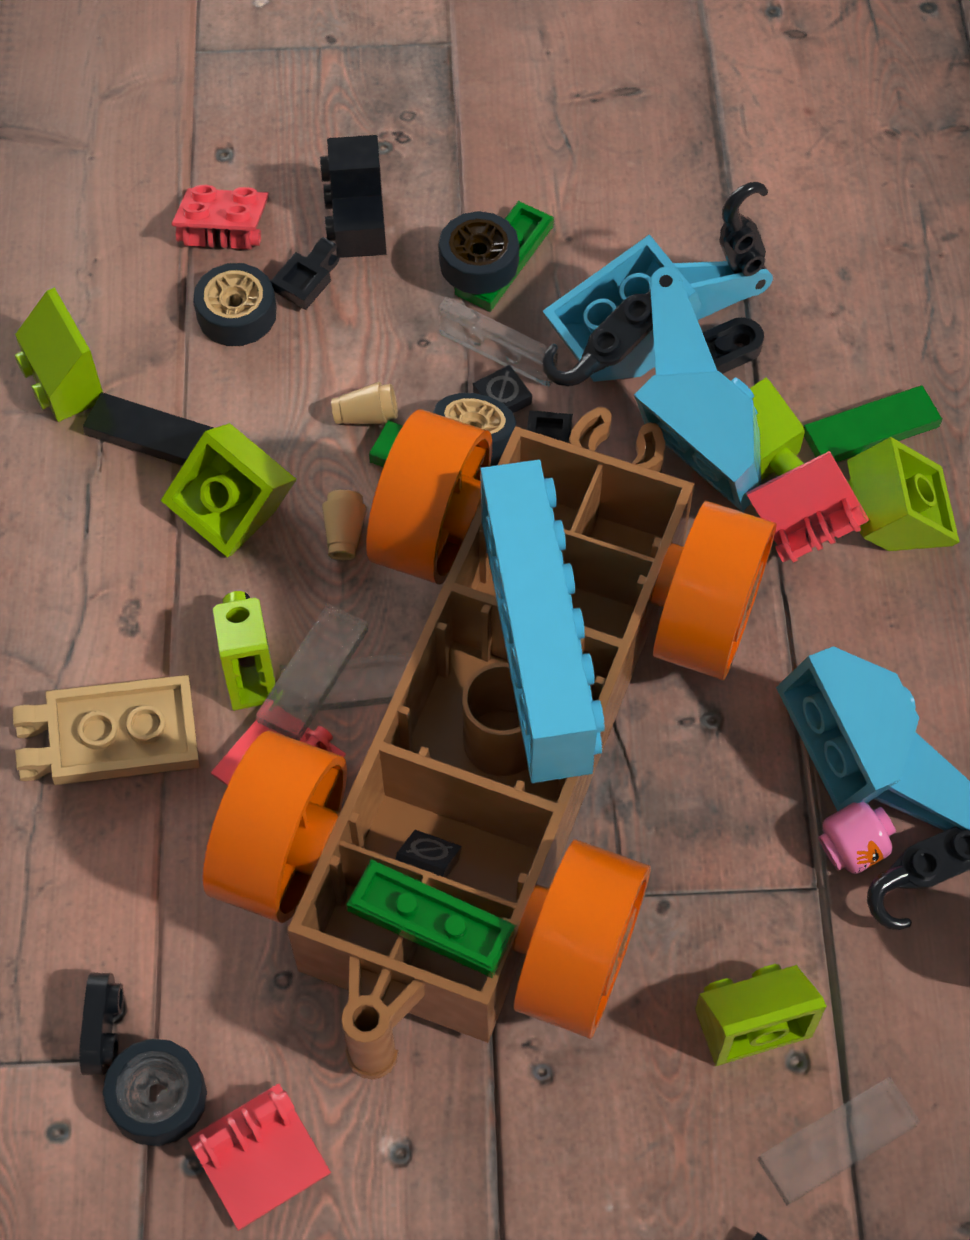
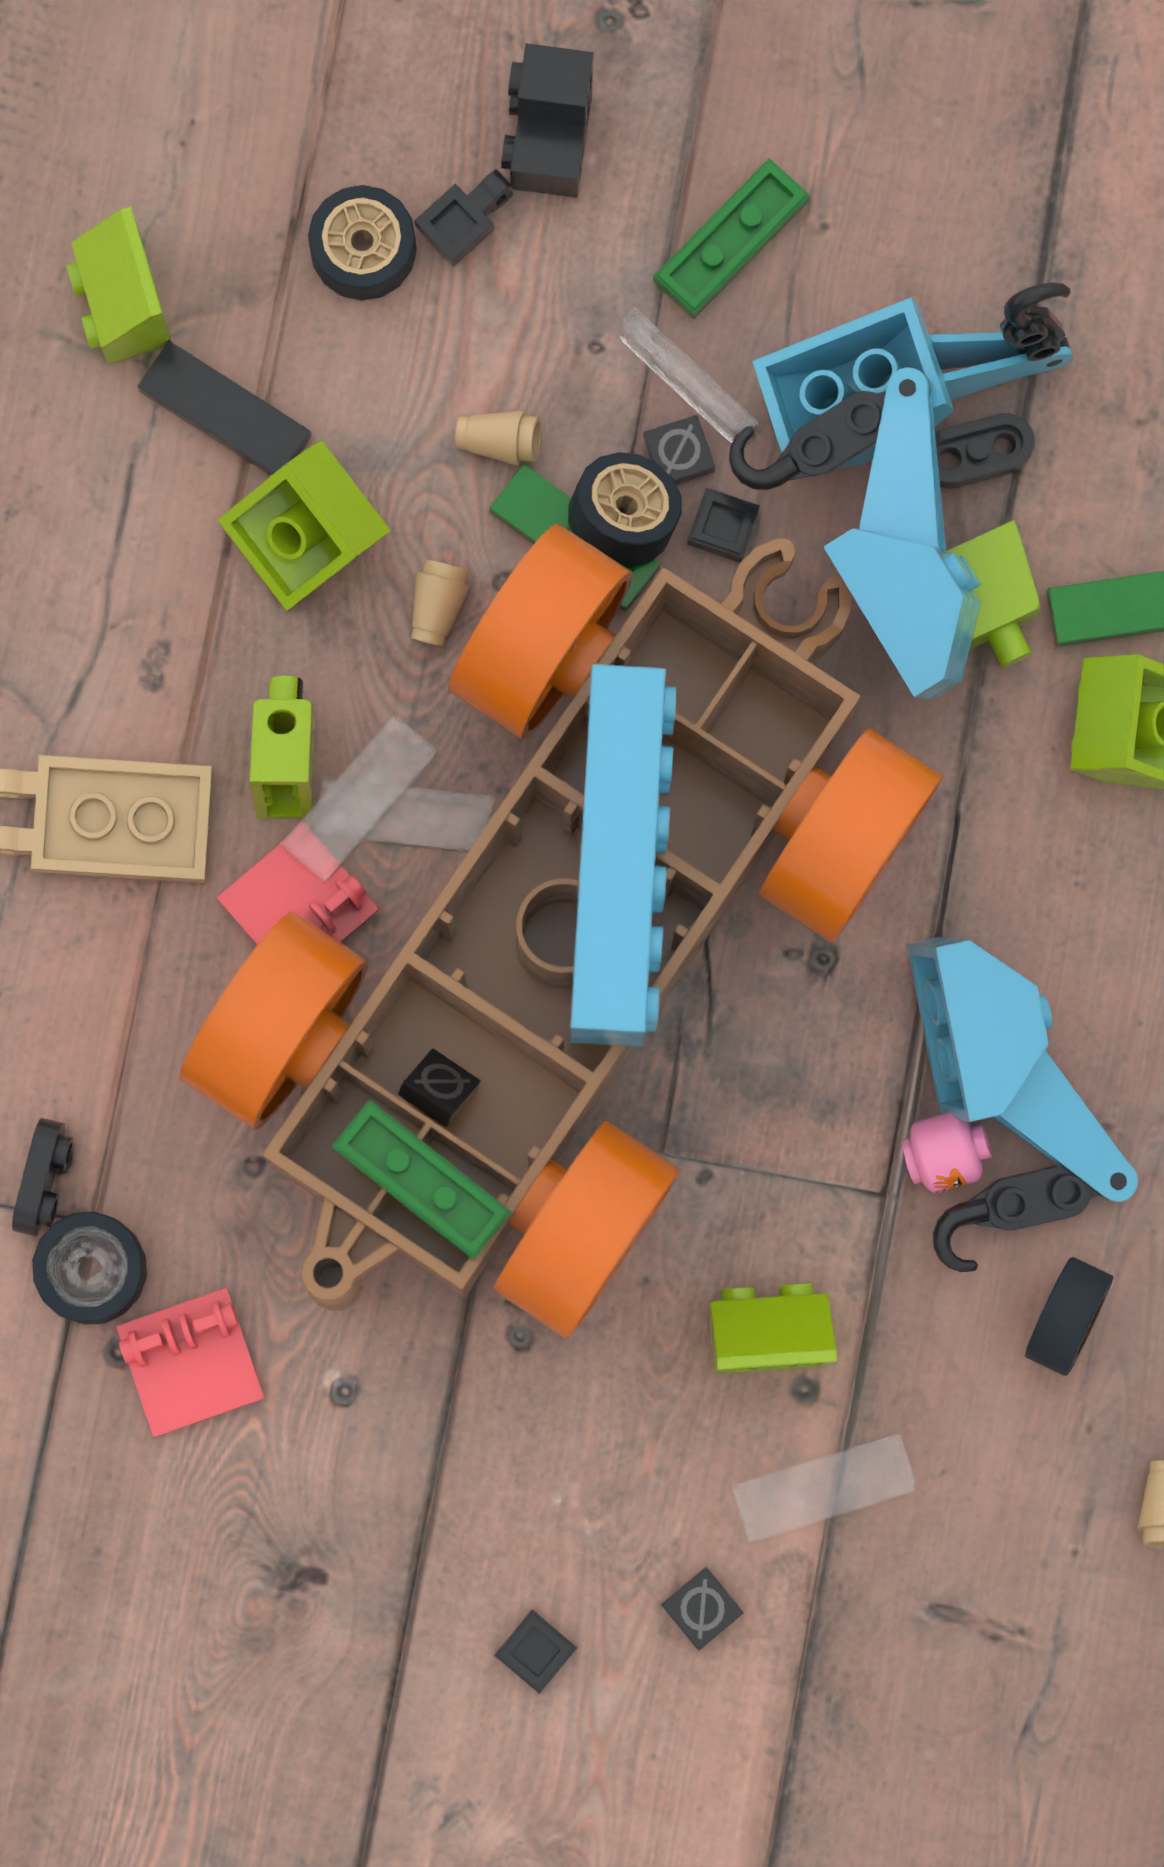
camera: 10 degrees right, 20 degrees up
(211, 209) = (370, 92): coral hinge -> none
(483, 235) = (714, 221): black wheel -> none
(808, 507) = (1009, 729): coral hinge -> none

